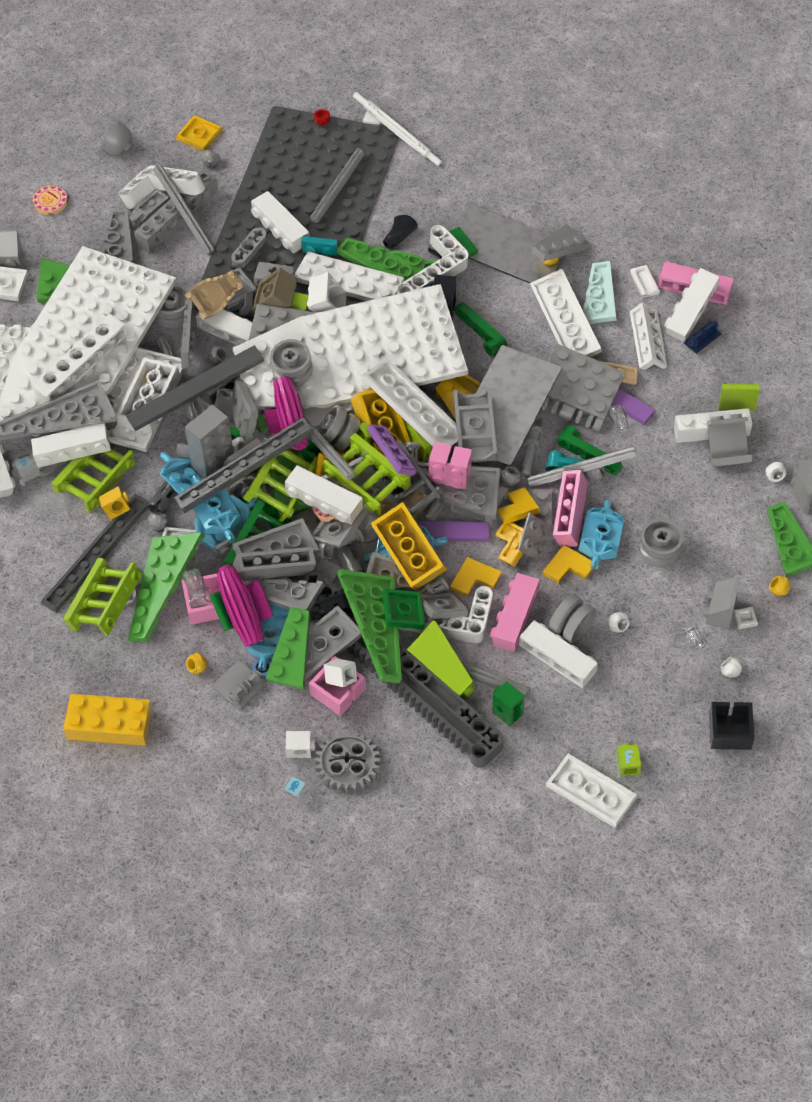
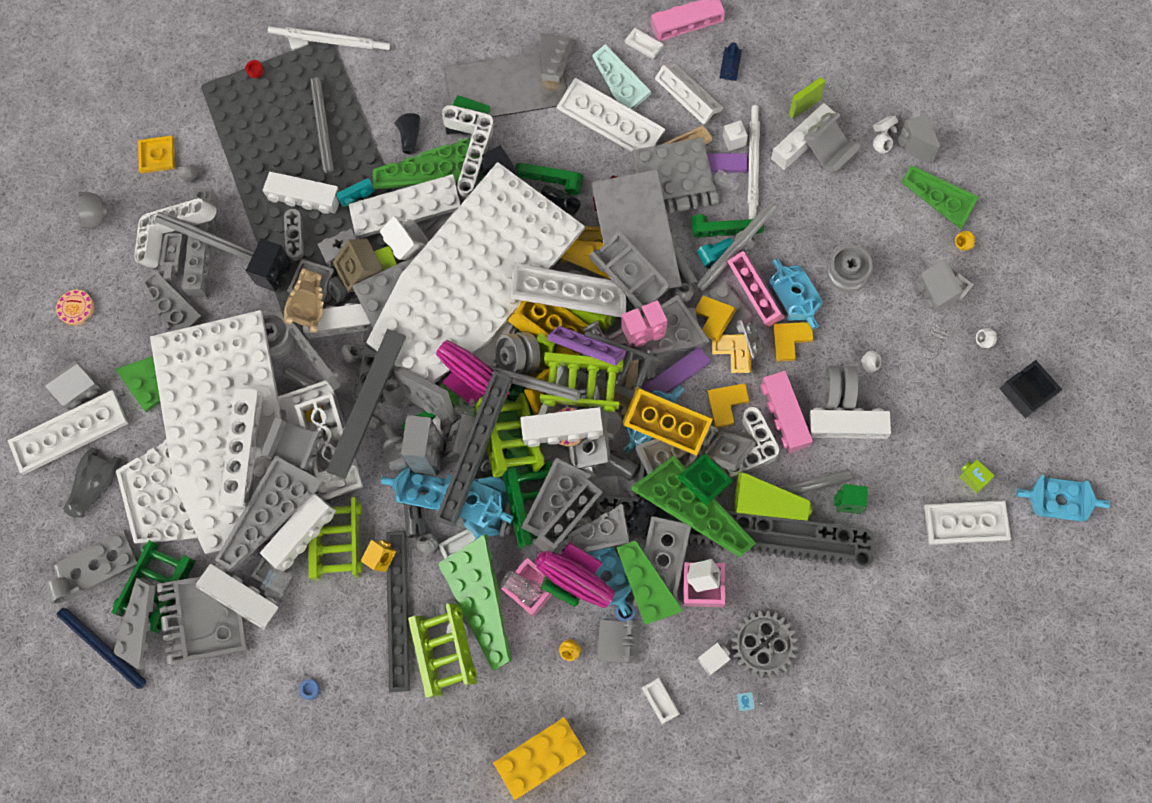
camera: 30 degrees left, 15 degrees up
(117, 380) = (292, 444): none -> light grey panel
(210, 253) = (268, 265): none -> black piece
(233, 747) = (660, 700): none -> white tile
(292, 360) = (433, 313): light grey wheel -> none
(475, 351) = (563, 200): none -> black piece
(655, 390) = (735, 135): none -> white brick
(660, 415) = (754, 135): none -> white axle
(676, 811) = (1078, 496): none -> medium azure plate
(692, 304) = (705, 40): white brick -> none
(790, 459) = (885, 124): none -> white tile

